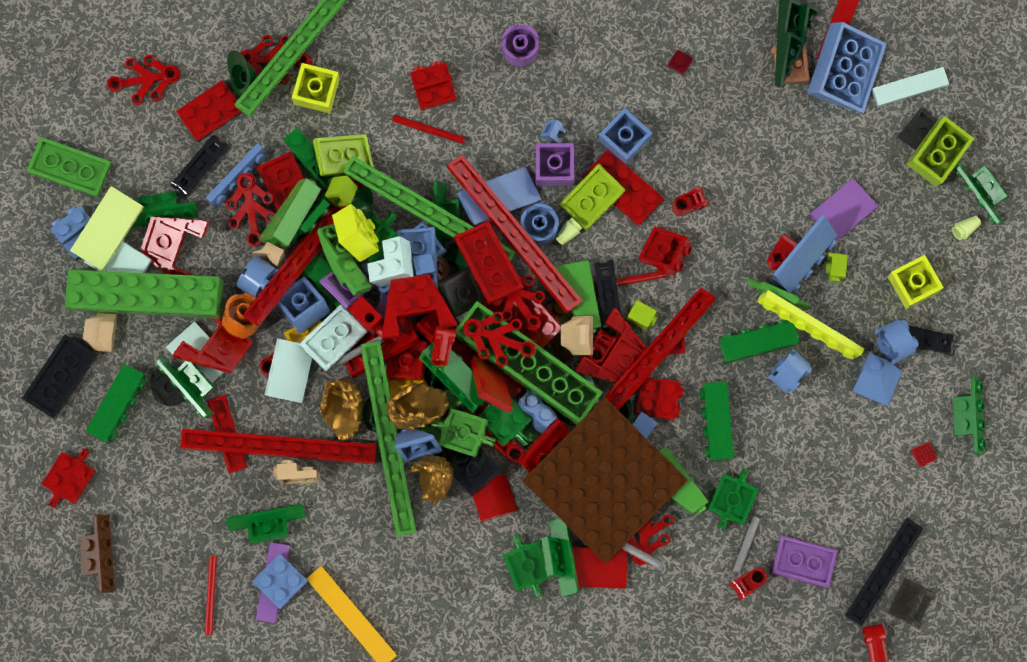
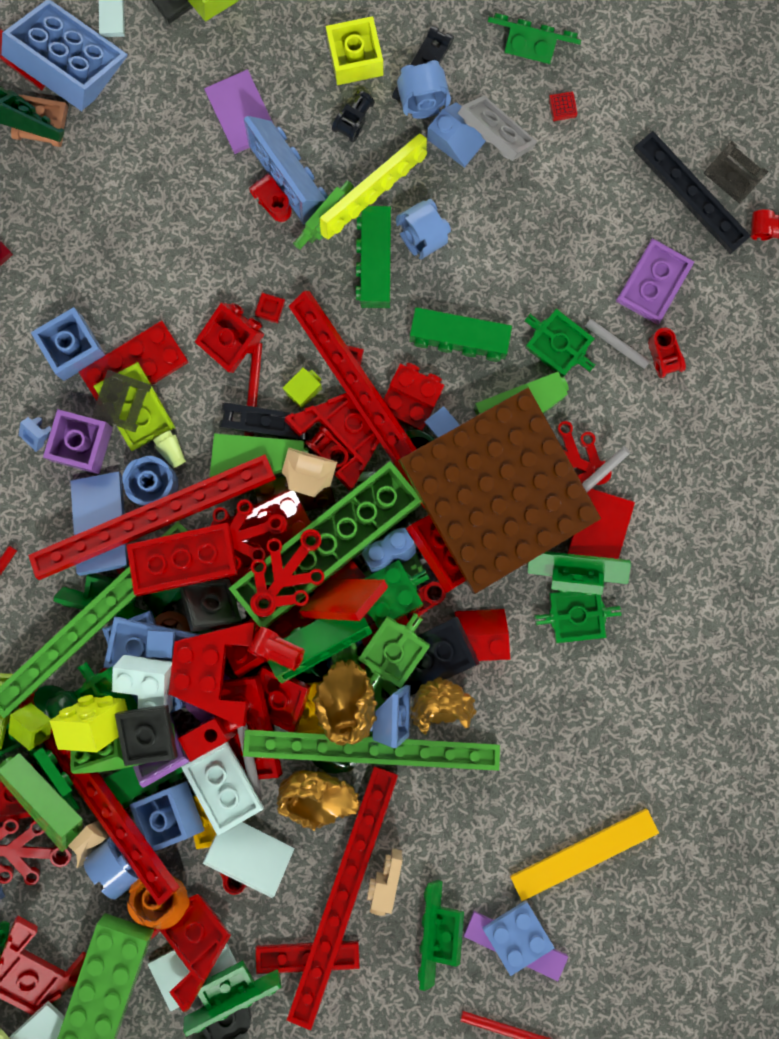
camera: 75 degrees left, 5 degrees up
(358, 272) = (146, 735): none -> pearl dark grey tile
(593, 180) = (112, 399): none -> clear smoke plate
(693, 201) = (175, 287): red piece -> none
(697, 274) = (270, 308): none -> red tile
(836, 267) = (309, 138): lime brick -> none
(864, 295) = (352, 118): none -> black connector
(887, 406) = (497, 128): none -> light grey plate

